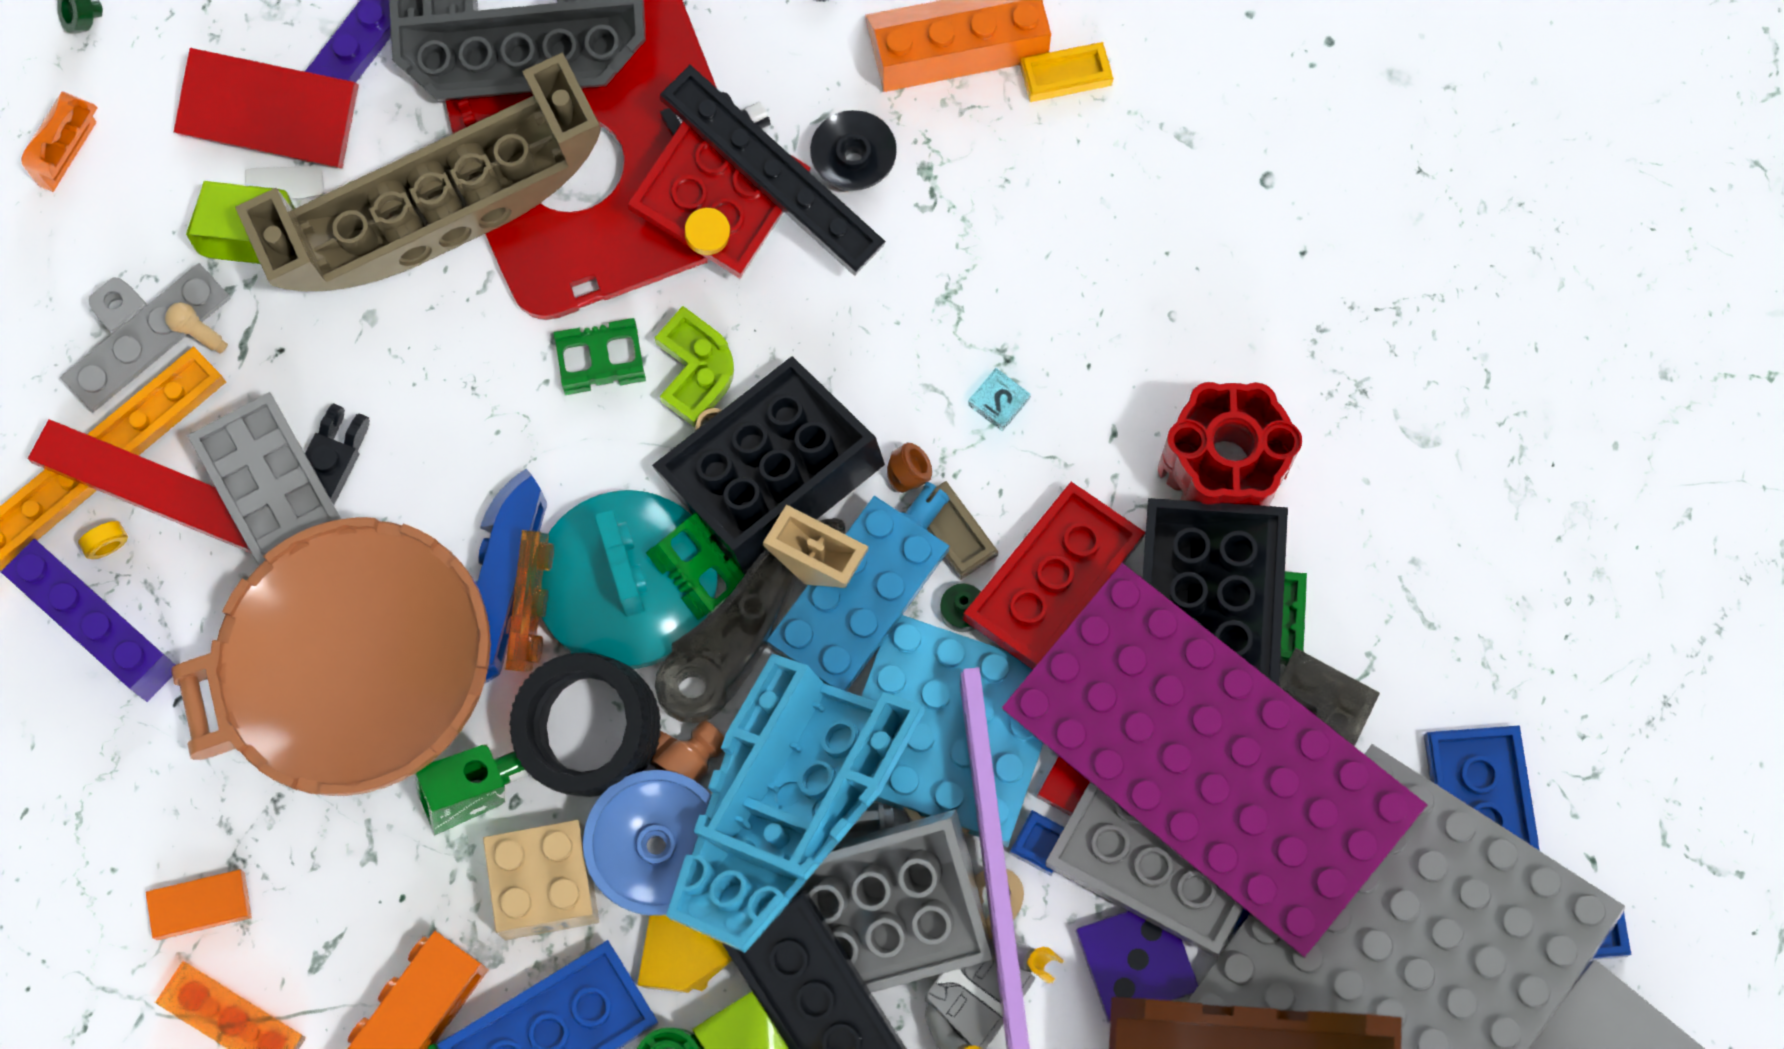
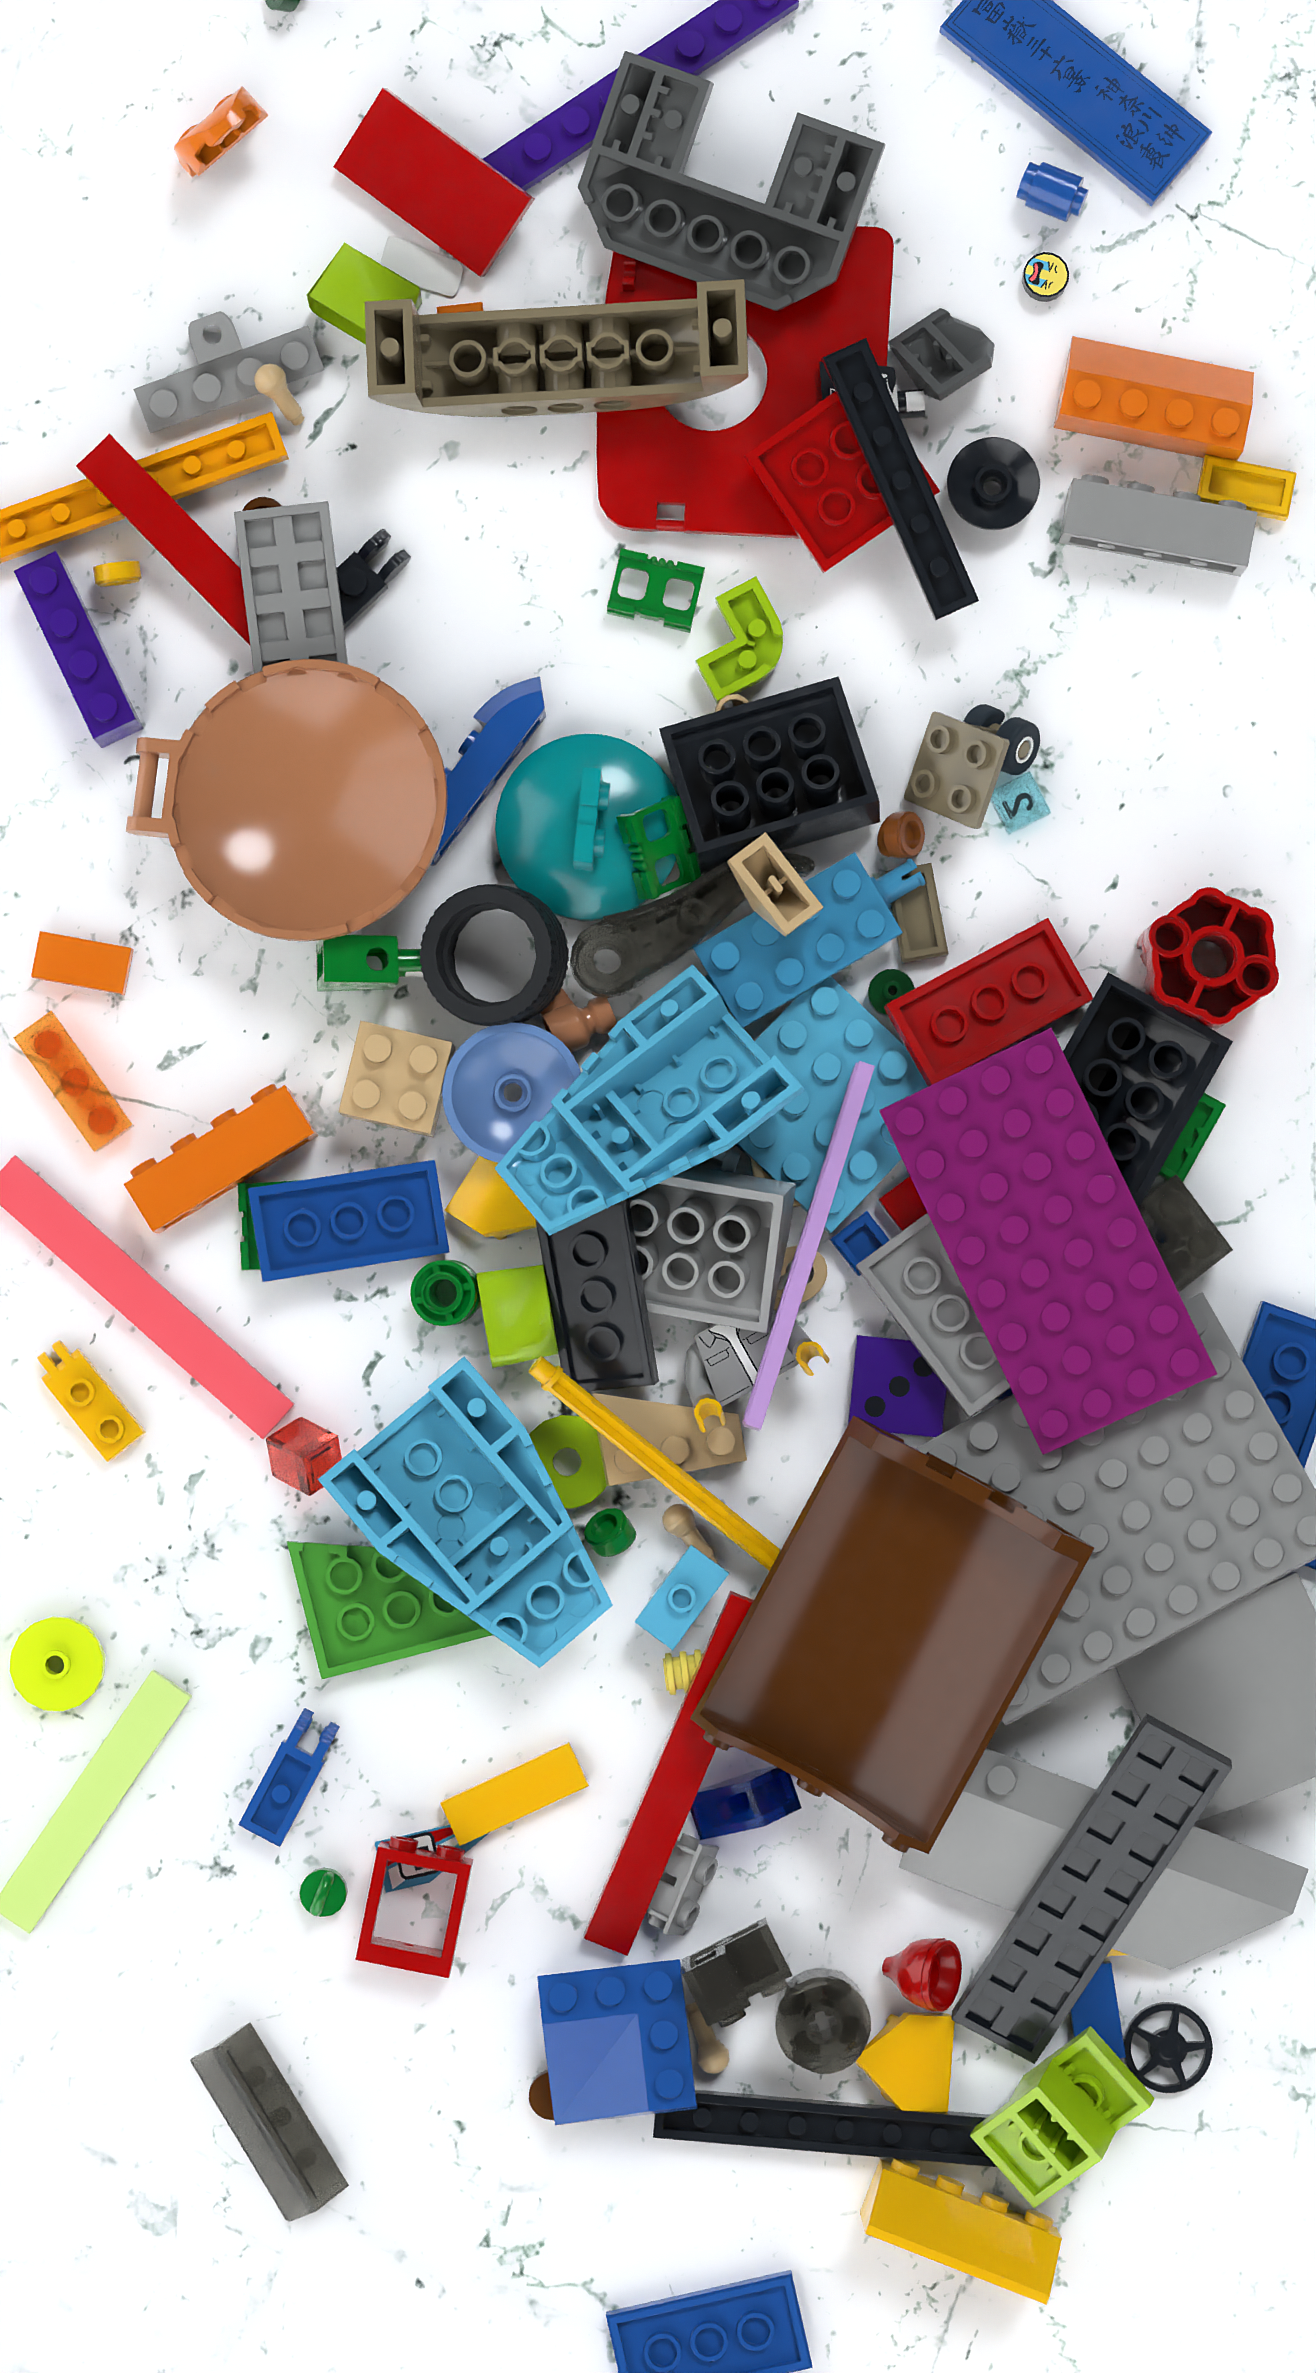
camera: 25 degrees right, 15 degrees up
(529, 601) = (490, 813): clear orange plate -> none
(707, 231) = (809, 517): yellow tile -> none
(761, 69) = (942, 353): none -> dark grey slope
(935, 381) = (964, 759): none -> dark tan plate
(1008, 127) = (1158, 525): none -> light grey brick

